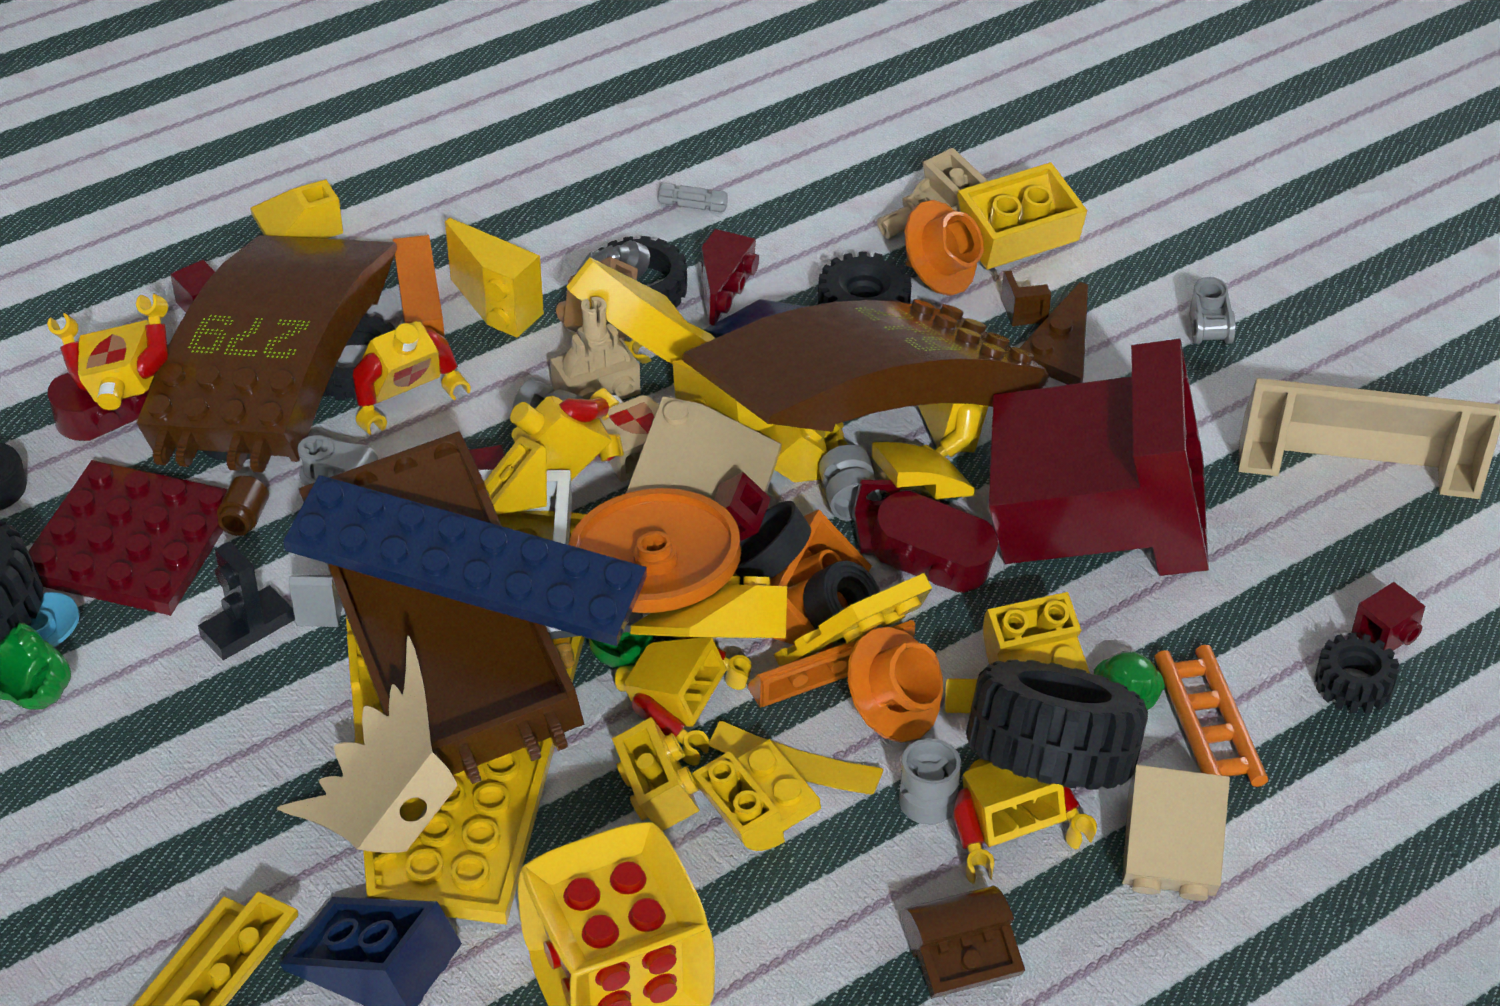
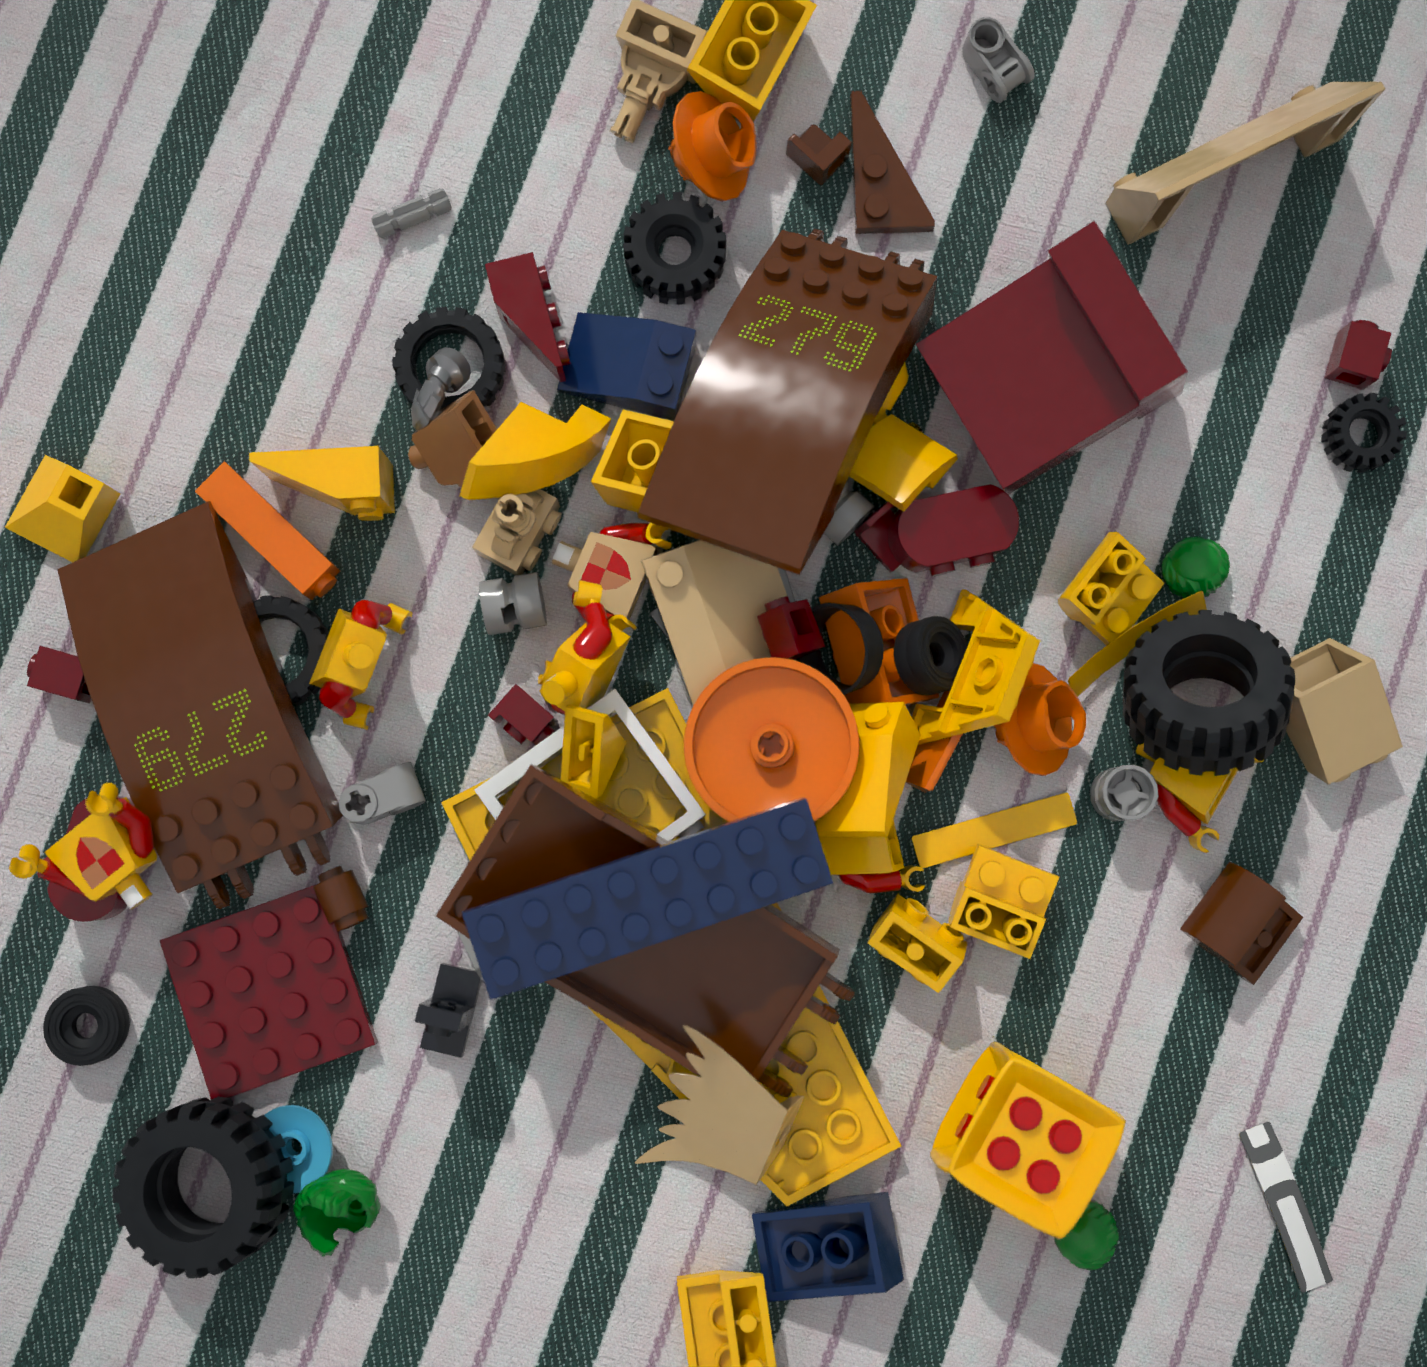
camera: 40 degrees left, 40 degrees up
(1218, 697) = (1279, 584): orange bar -> none

